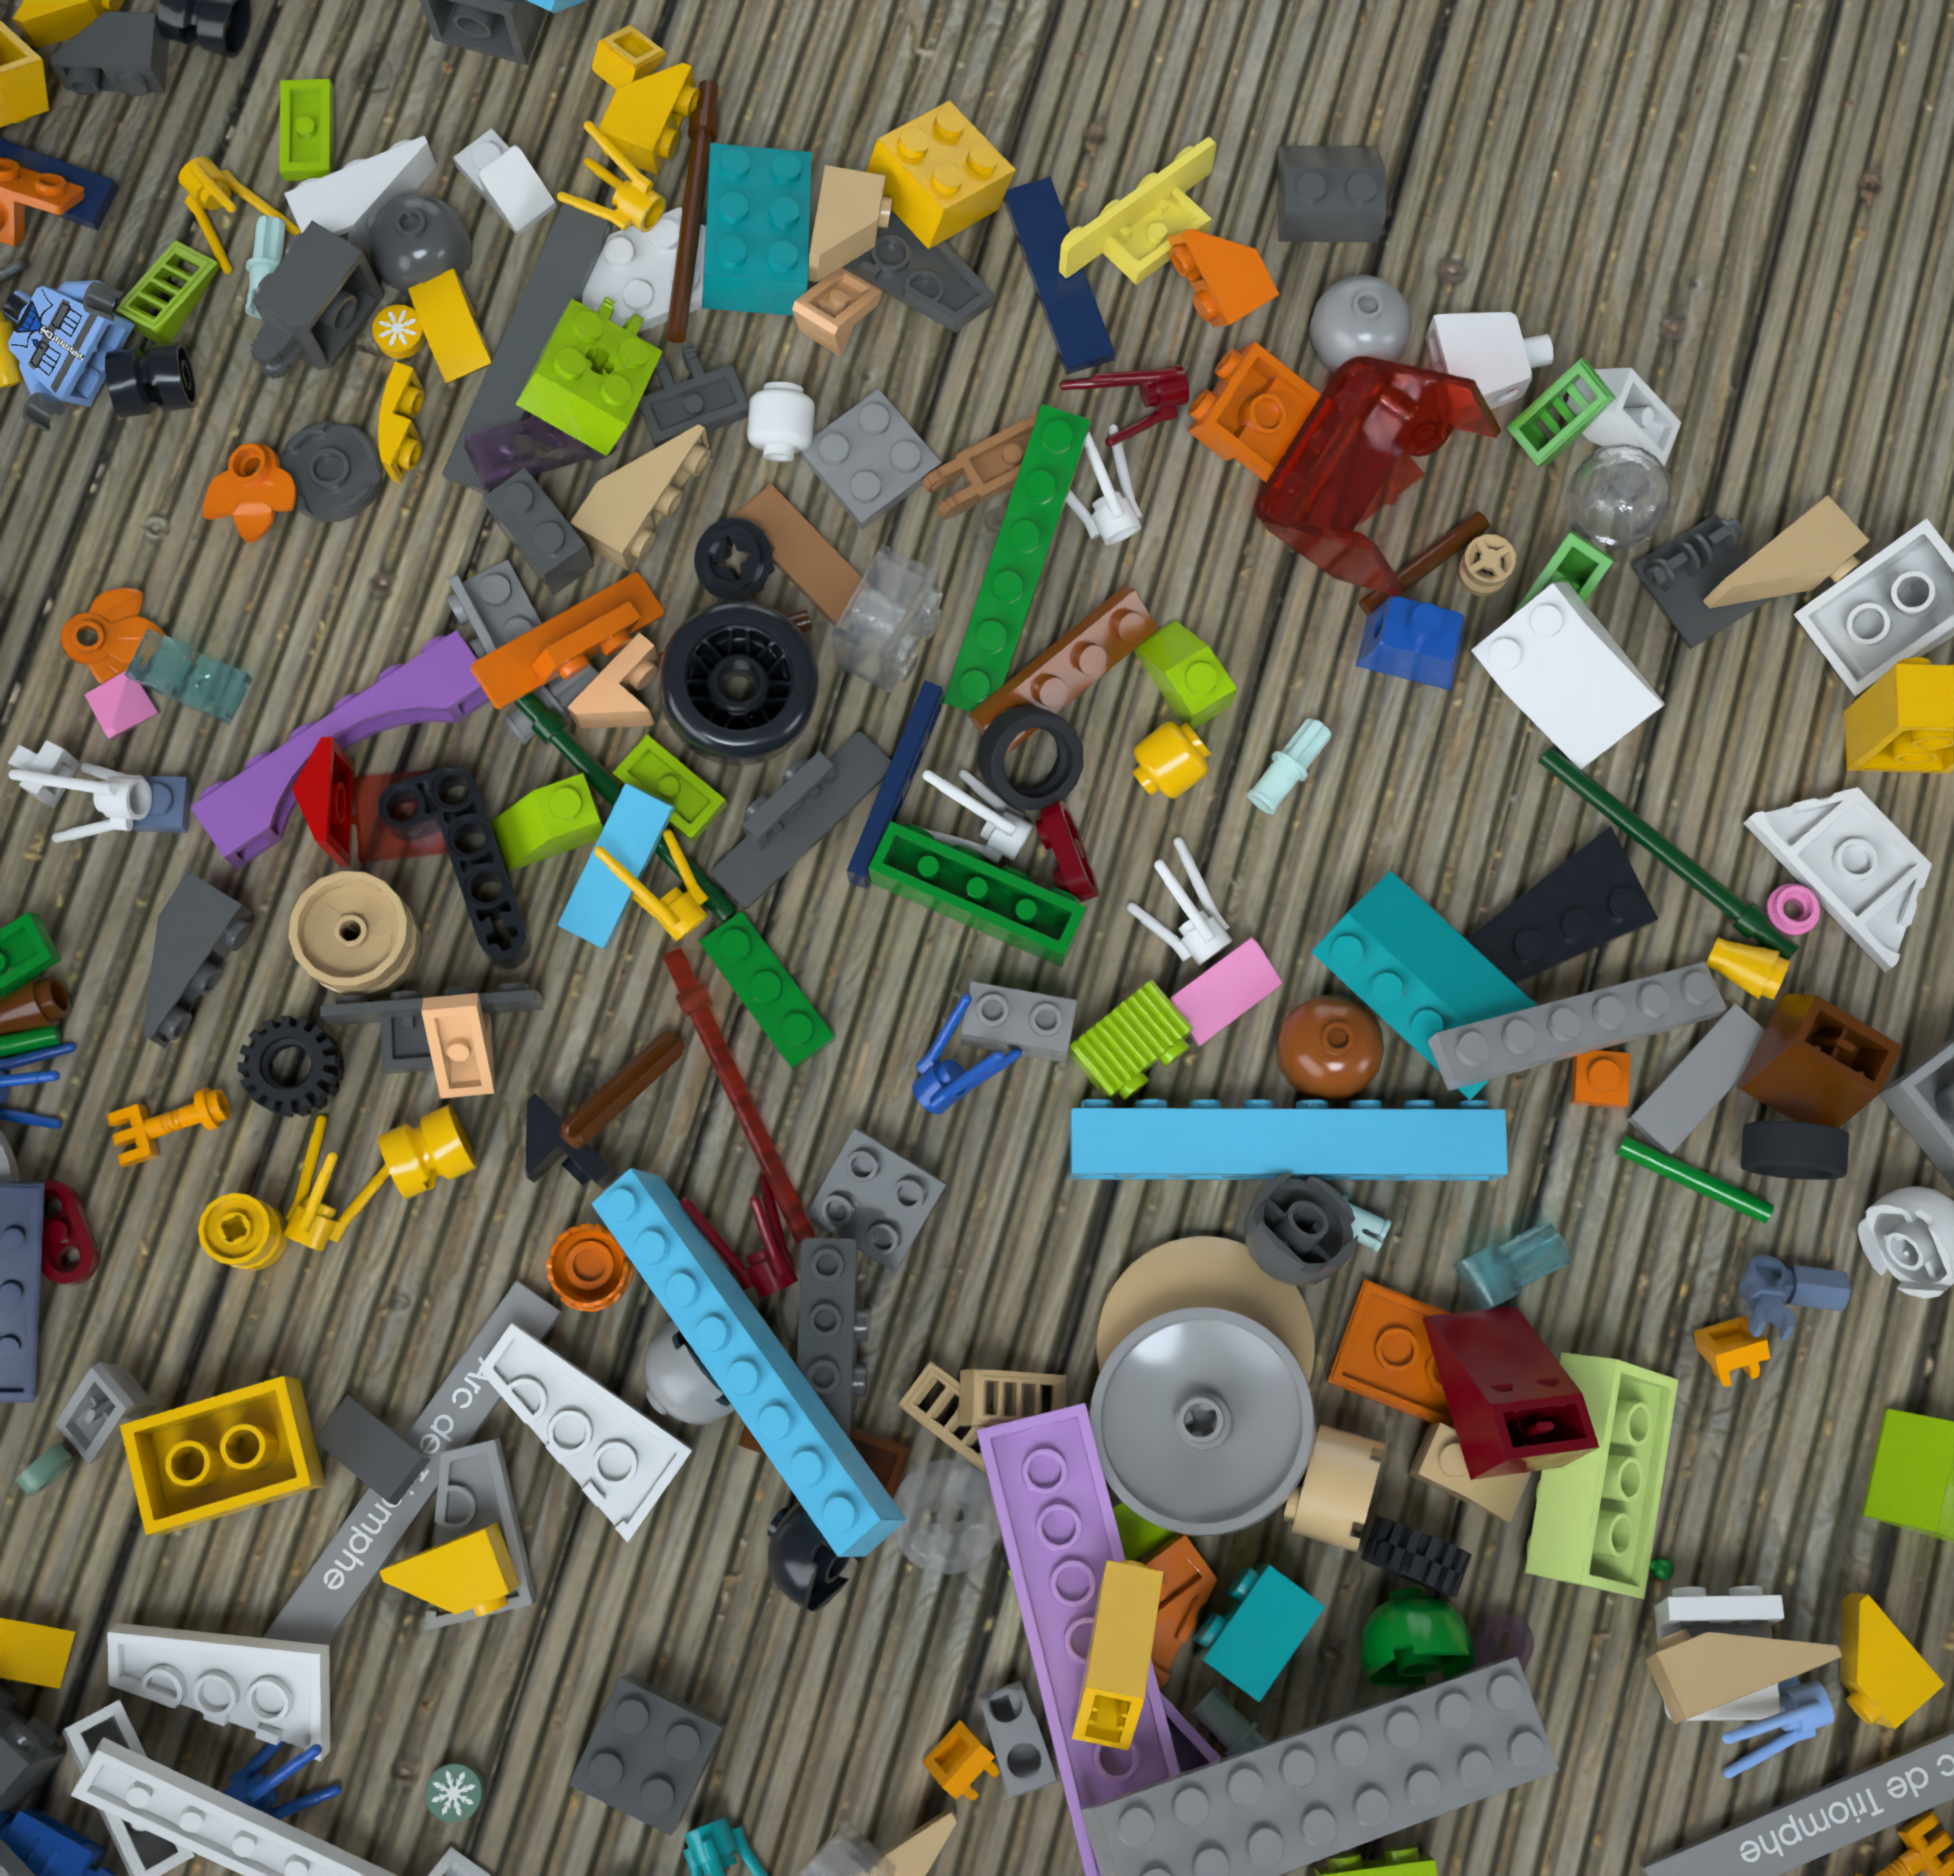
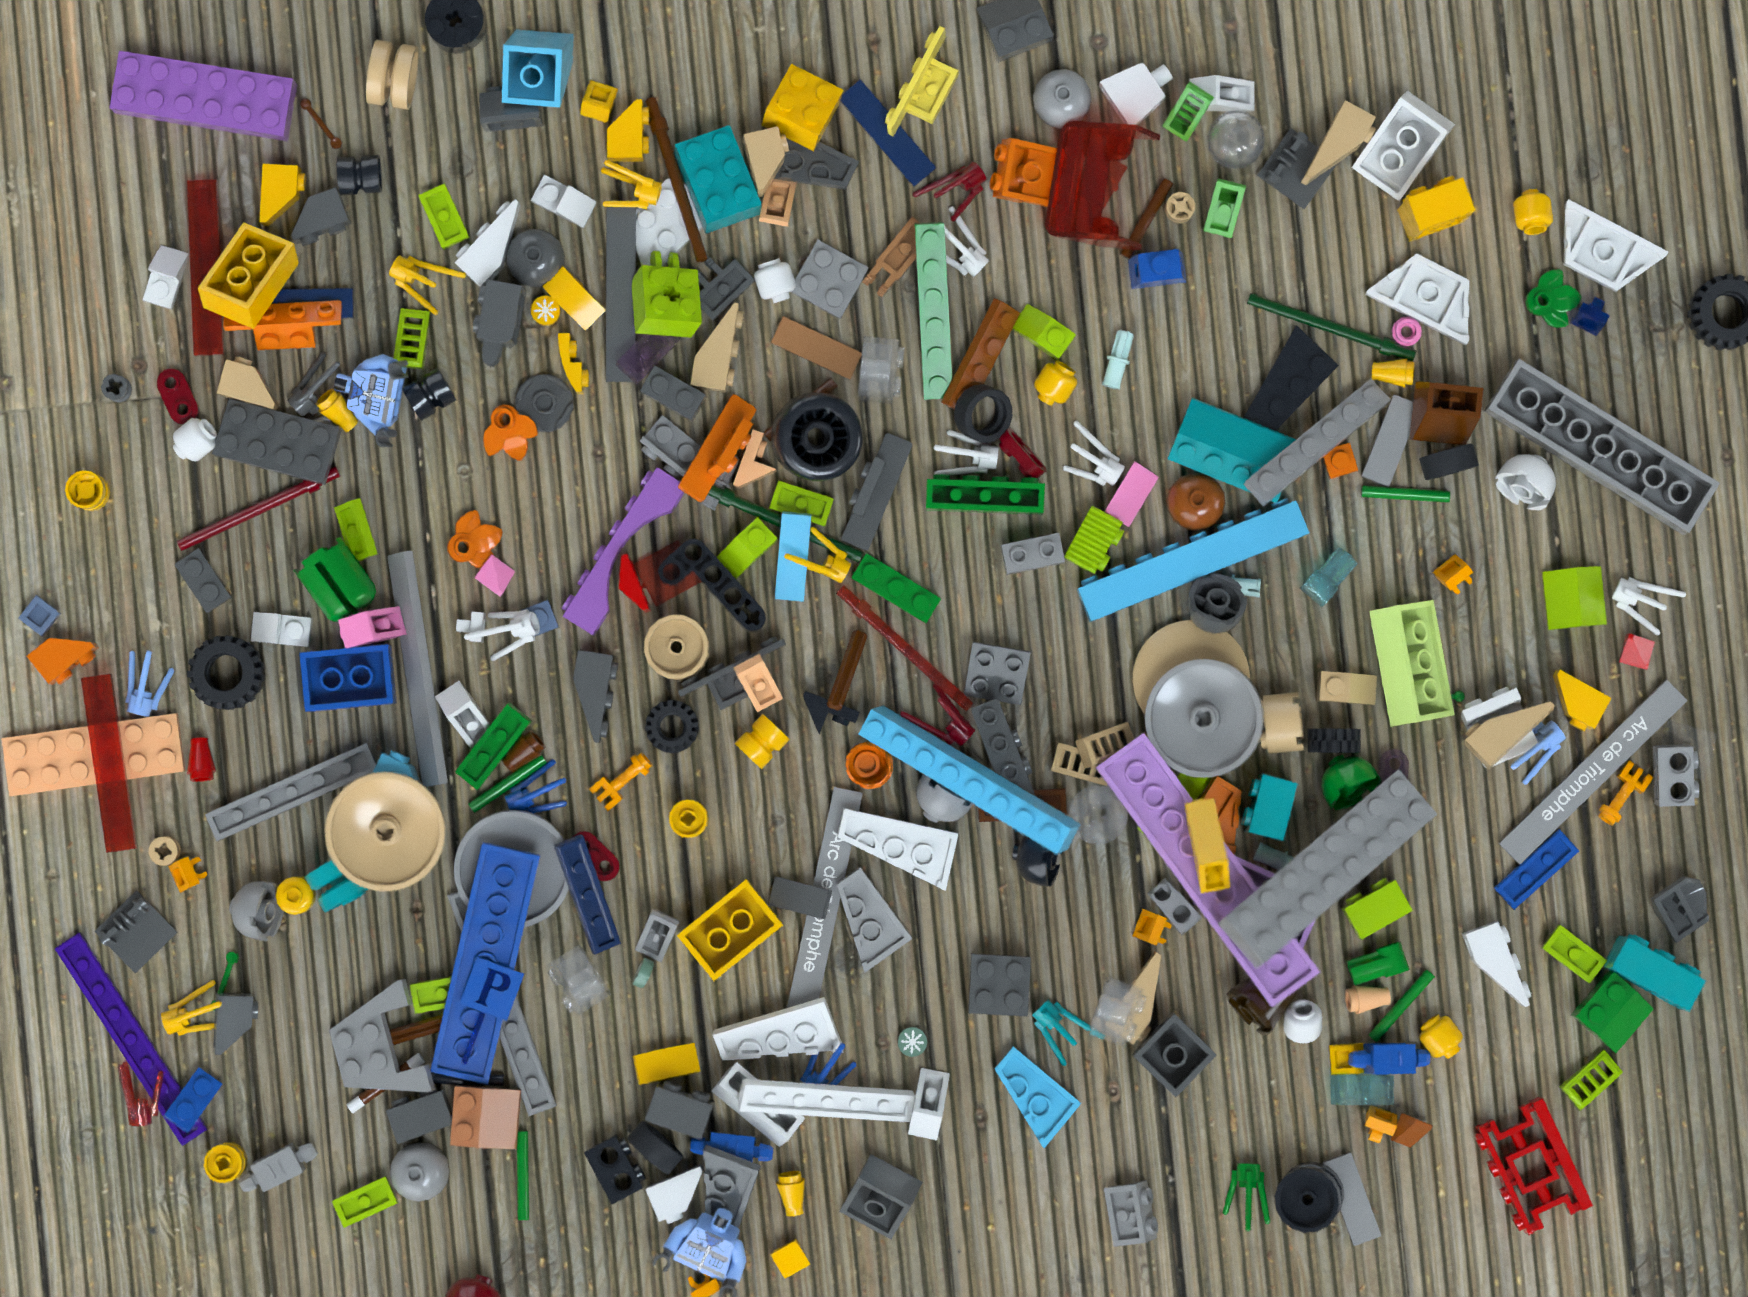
camera: 20 degrees left, 10 degrees up
(188, 676) = (523, 546): clear light blue slope -> none
(266, 256) = (458, 303): light aqua axle -> none
(309, 1218) = (719, 799): yellow plant -> none
(459, 1573) = (872, 937): yellow slope -> none
(716, 547) = (782, 380): black gear -> none
(897, 780) = (918, 454): dark blue tile -> none
(947, 1081) = (1008, 599): blue plant -> none
(1224, 275) = (979, 102): orange slope -> none
(1389, 1355) = (1302, 642): orange tile -> none
(1507, 1394) = (1347, 643): dark red slope -> none
(1568, 674) = (1244, 255): white slope -> none
(1770, 1286) = (1460, 534): sand blue bar -> none

